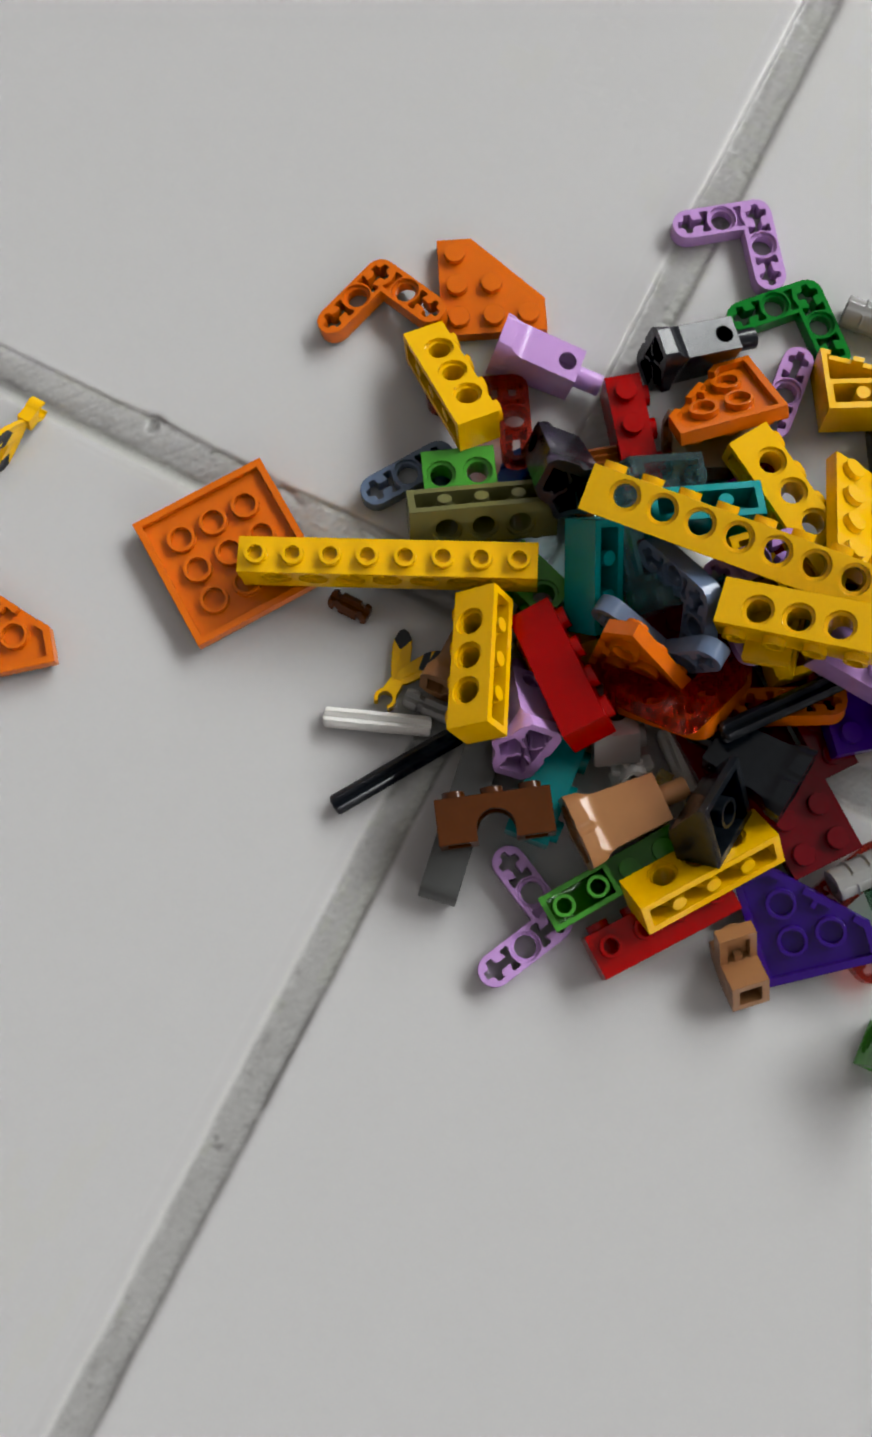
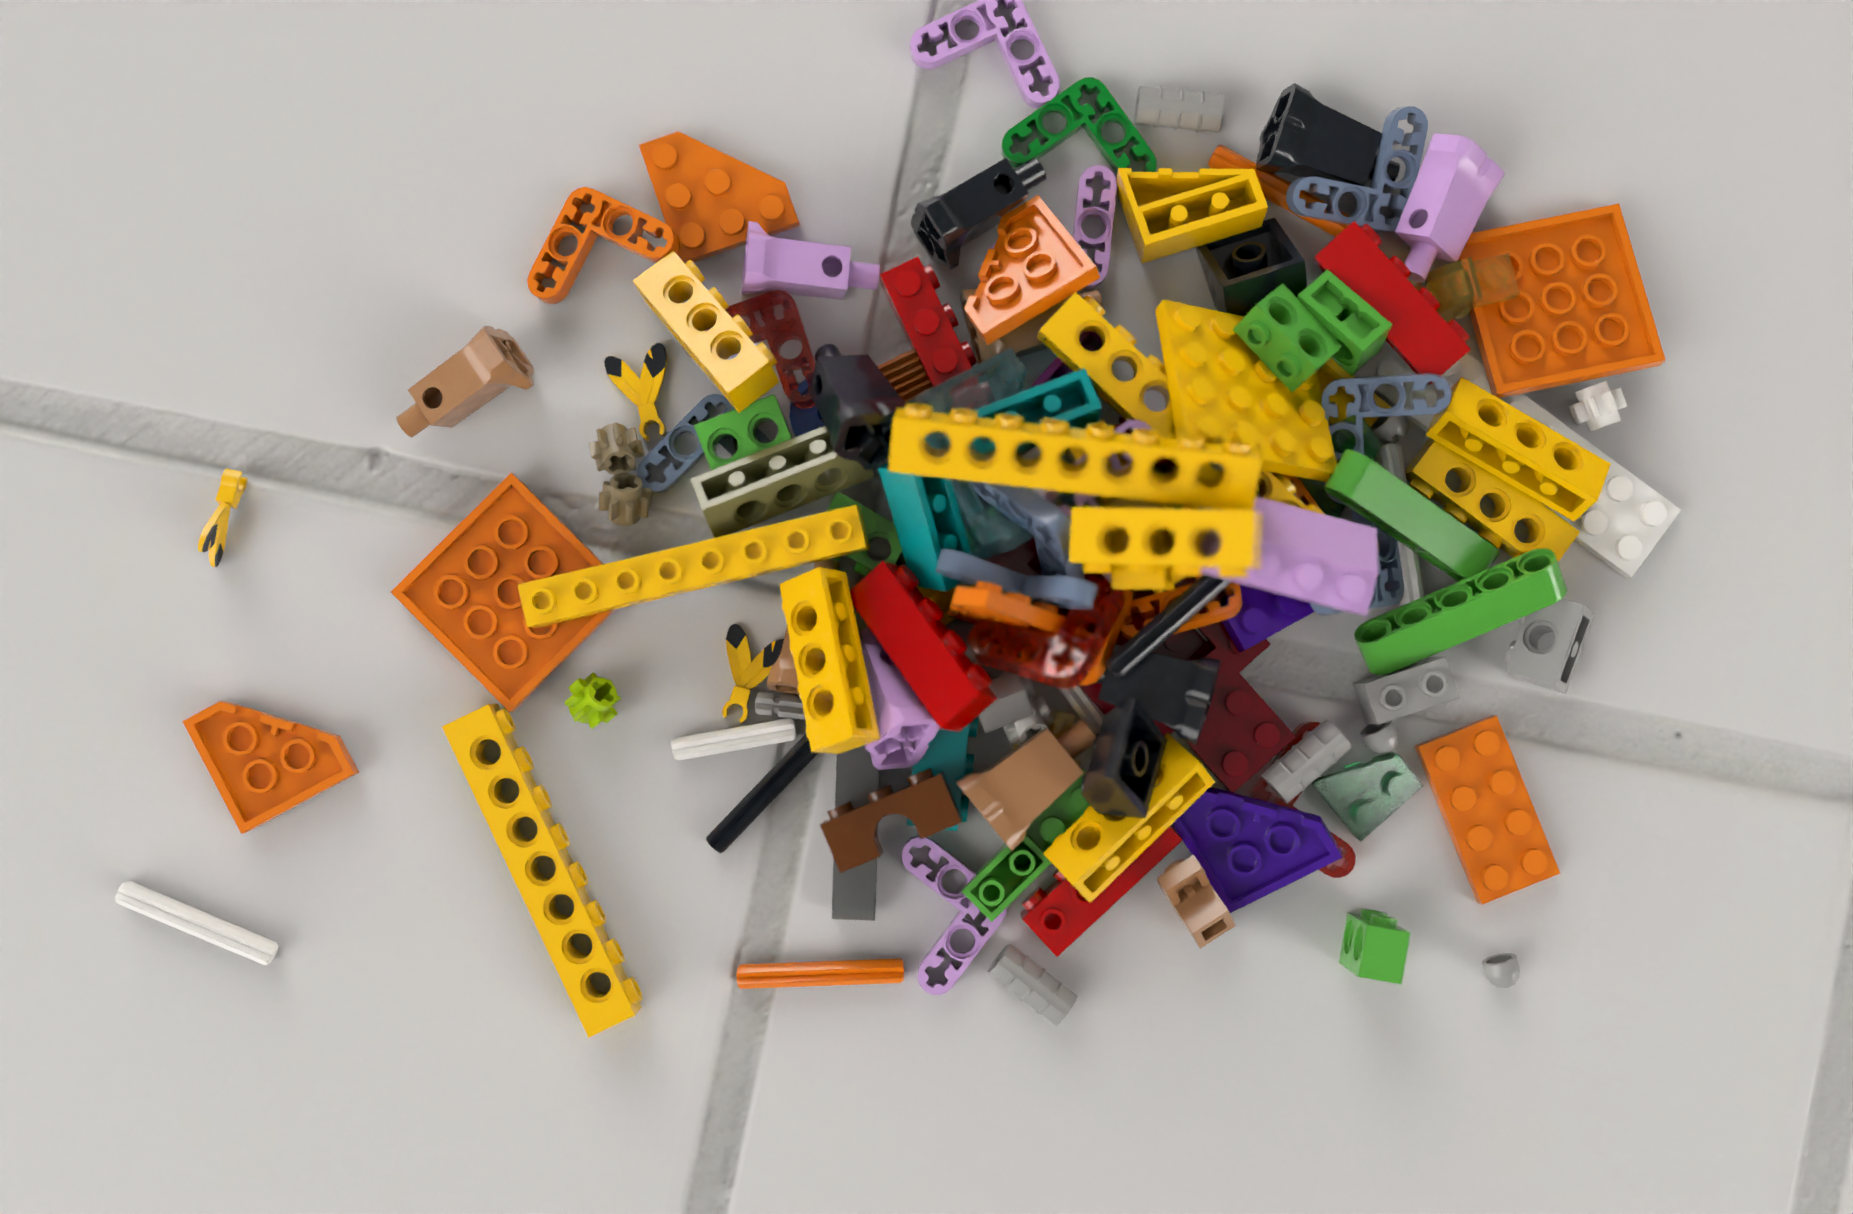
camera: 20 degrees left, 10 degrees up
(158, 657) = (594, 1008): none -> yellow brick
(245, 377) = (467, 381): none -> medium nougat piece
(269, 655) = (592, 700): none -> lime gear
(345, 502) = (625, 499): none -> dark tan gear
(349, 606) = (665, 616): reddish brown piece -> none
(350, 462) = (616, 449): none -> dark tan gear
(384, 427) = (642, 391): none -> yellow piece
(394, 941) = (820, 973): none -> orange axle
(577, 1002) = (1032, 984): none -> light grey axle

